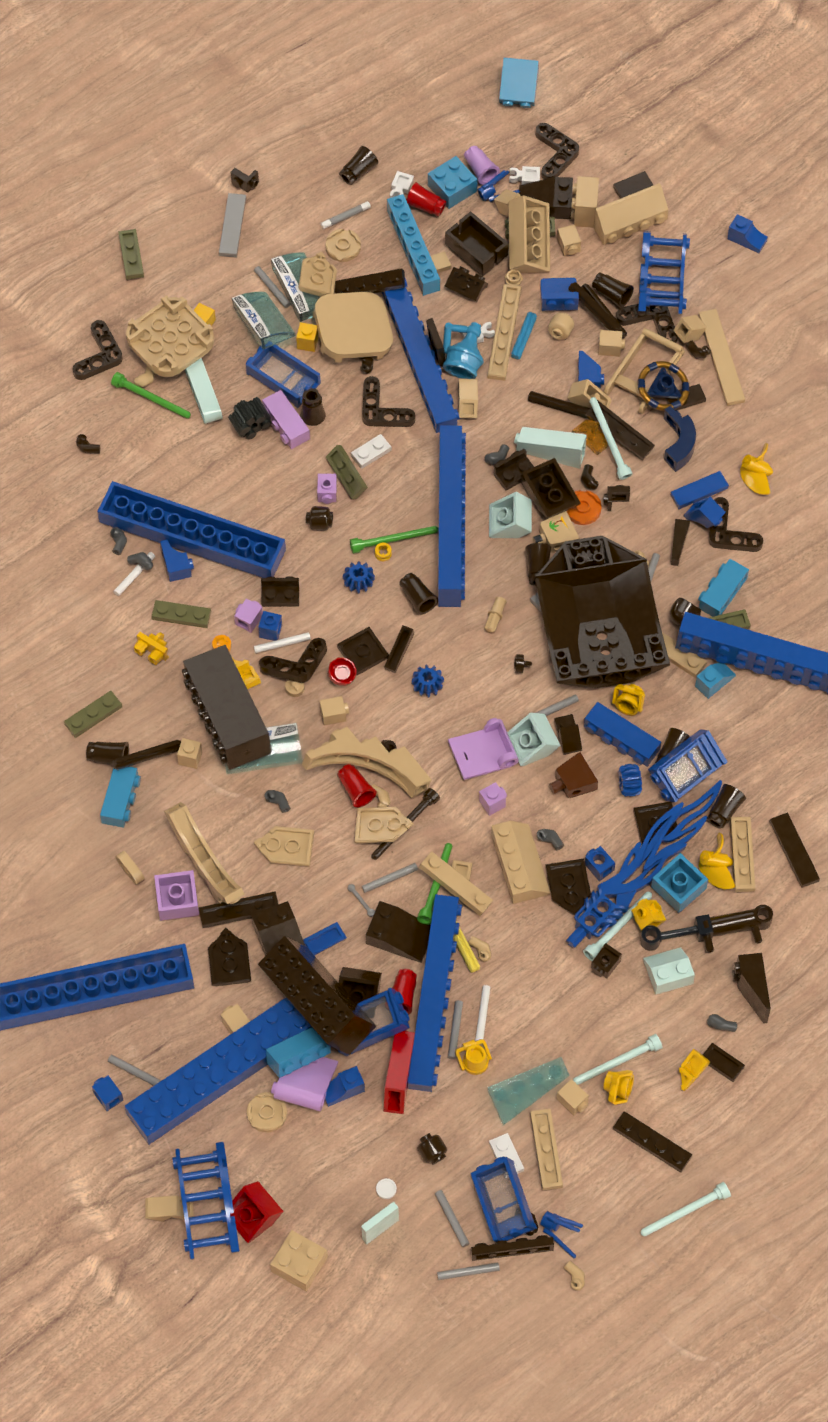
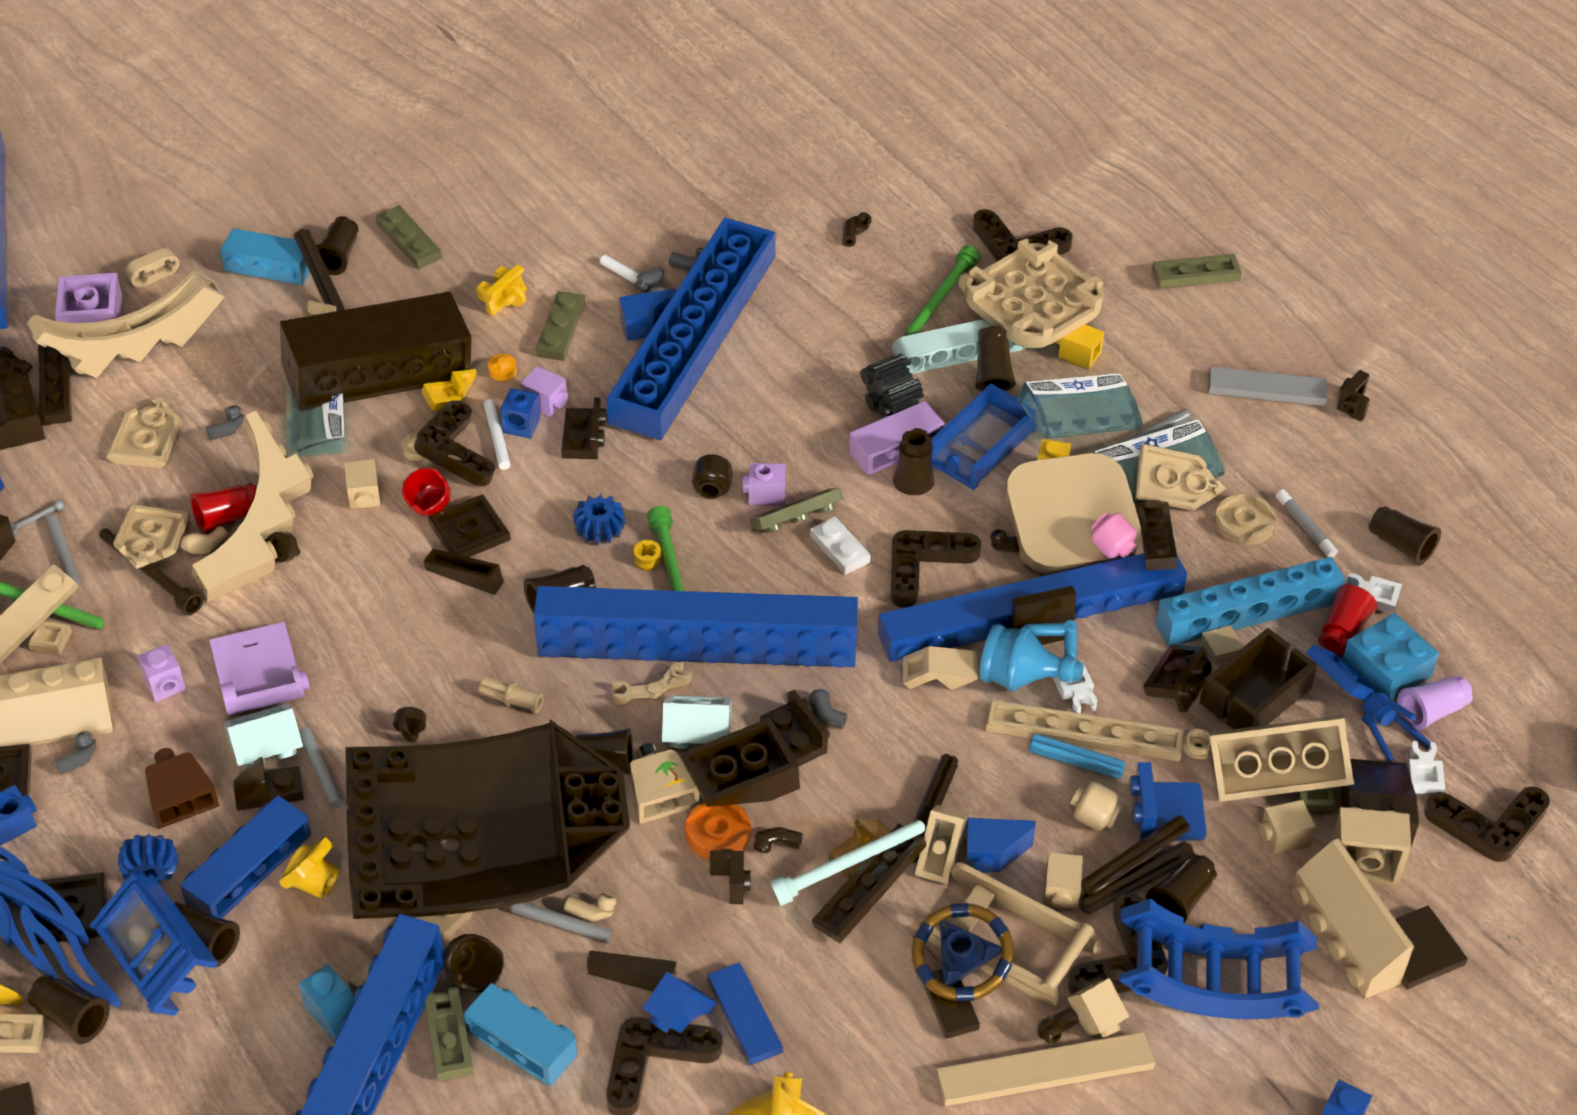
camera: 90 degrees right, 15 degrees down
(225, 362) = (993, 359): none -> dark brown plant
(379, 301) = (1113, 535): none -> bright pink head
(434, 679) = (396, 599): blue gear -> none
(468, 203) = (1341, 672): none -> blue tile
(478, 535) = (653, 690): none -> tan piece
(503, 199) = (1360, 734): tan brick -> none
(548, 444) = (835, 781): light aqua slope -> none
(682, 451) = (849, 991): dark blue arch -> none

